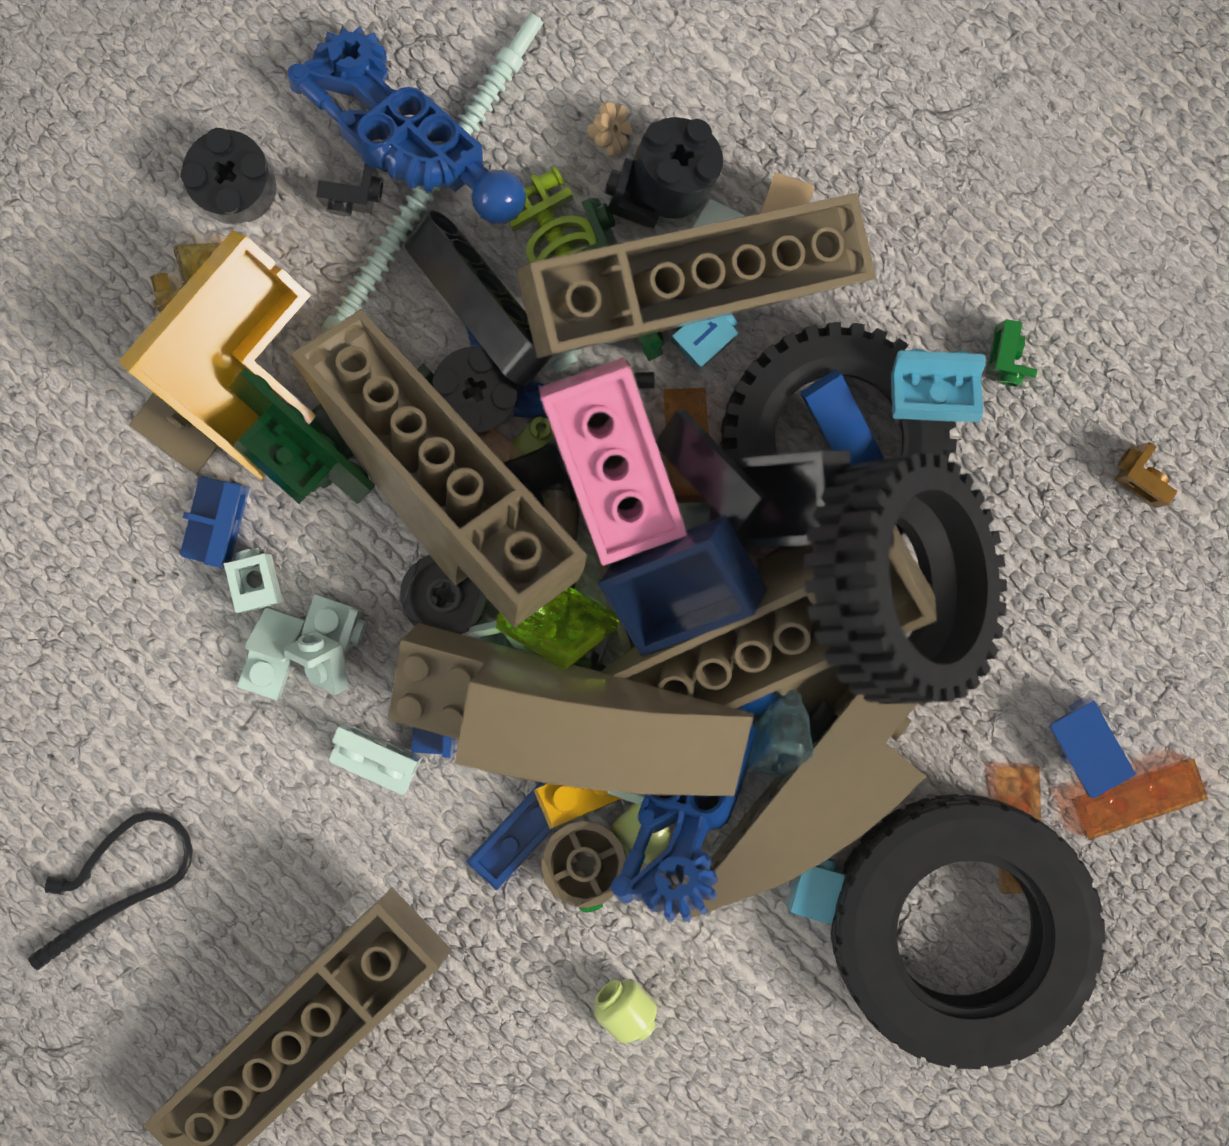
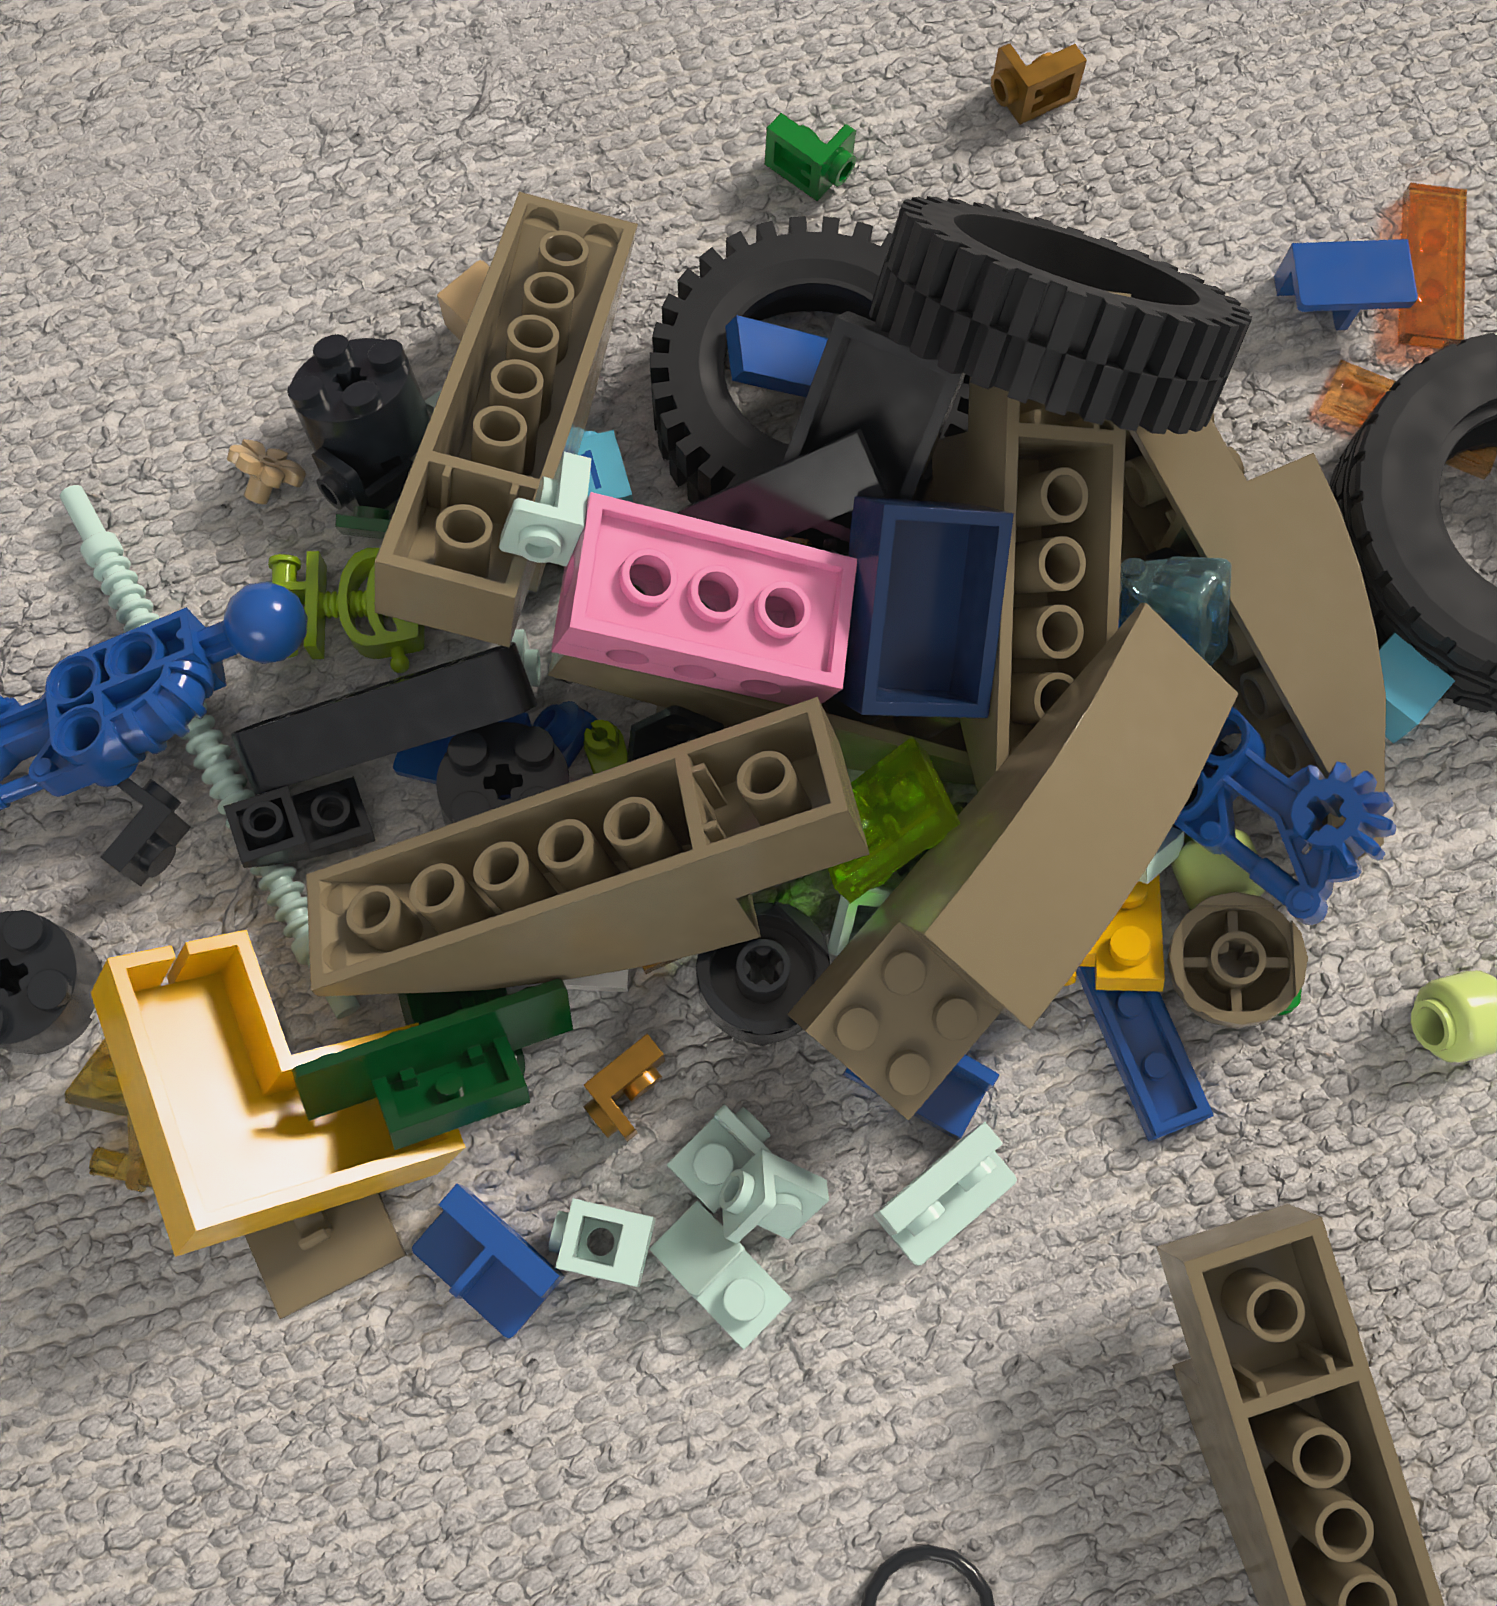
camera: 65 degrees left, 15 degrees down
(352, 548) = (628, 1074): none -> pearl gold bracket
(399, 279) = (299, 827): none -> black slope
(620, 351) = (553, 523): none -> light aqua bracket
(937, 386) = (811, 210): medium azure bracket -> none

